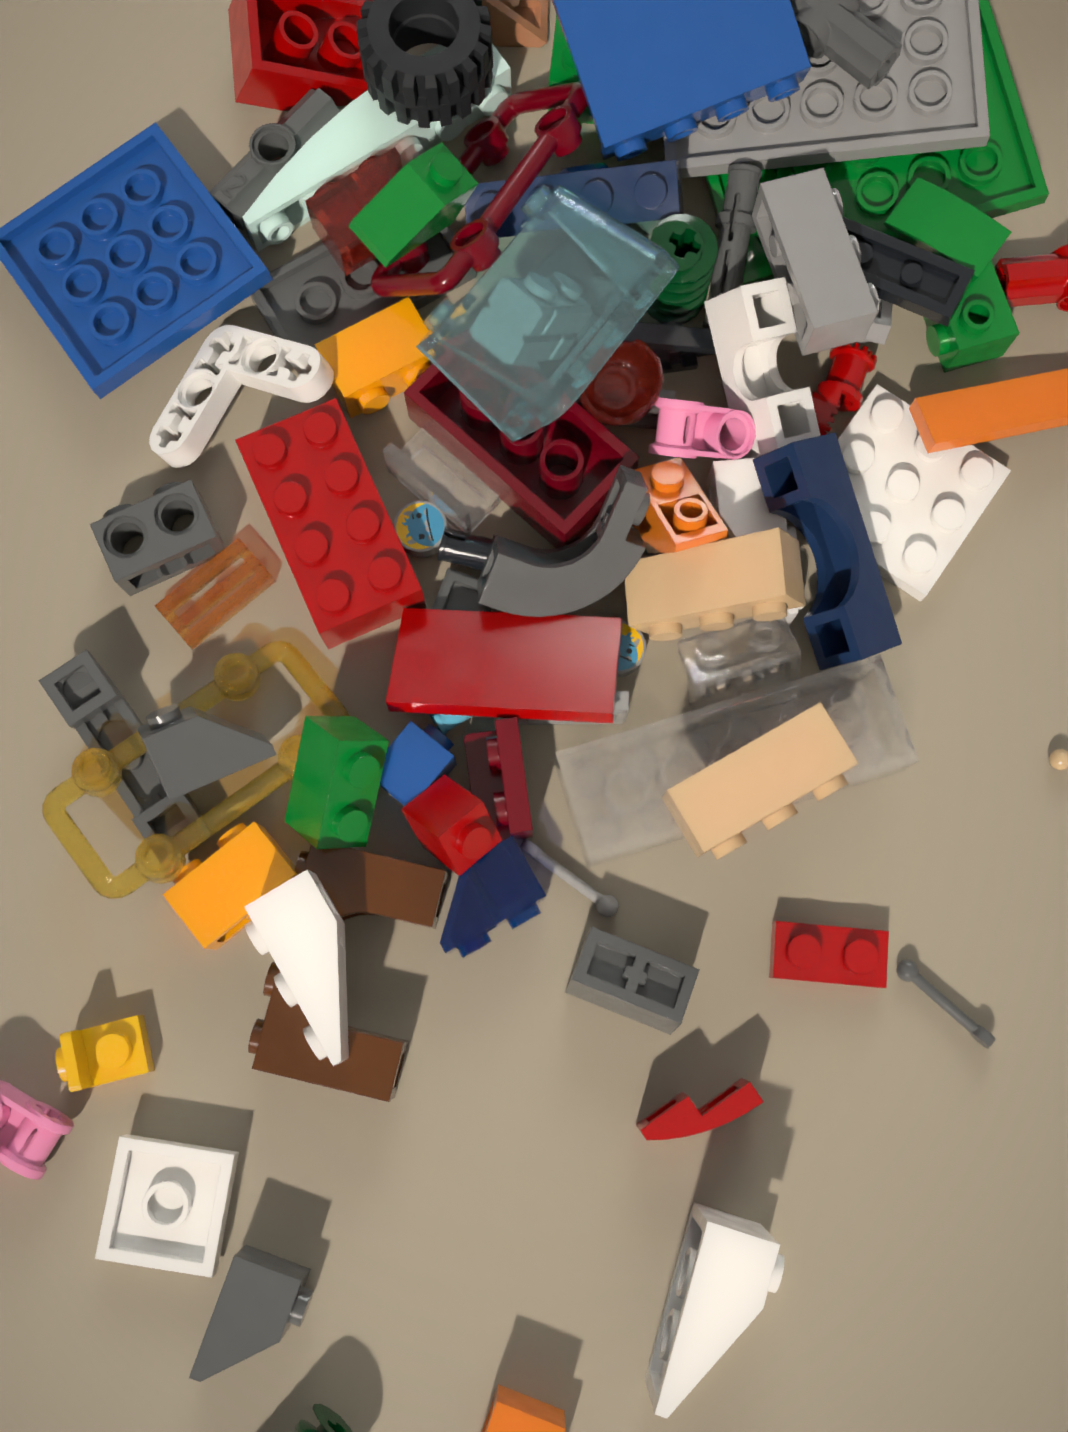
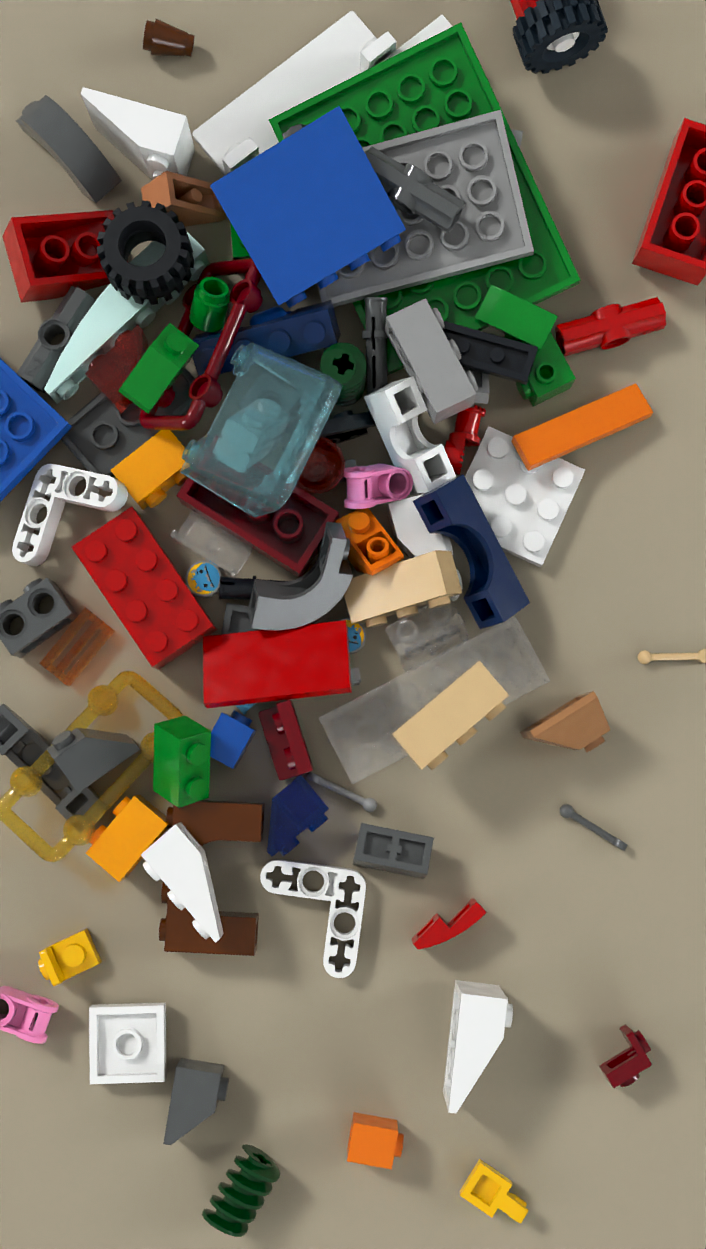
camera: 10 degrees left, 5 degrees up
(452, 824) = (261, 774): red brick -> none
(503, 136) = (210, 304): none -> green brick
(522, 1027) = (329, 892): none -> white beam
(829, 954) = (515, 810): red plate -> none
(940, 839) = (572, 725): none -> medium nougat slope
(947, 1391) = (627, 1065): none -> dark red bracket

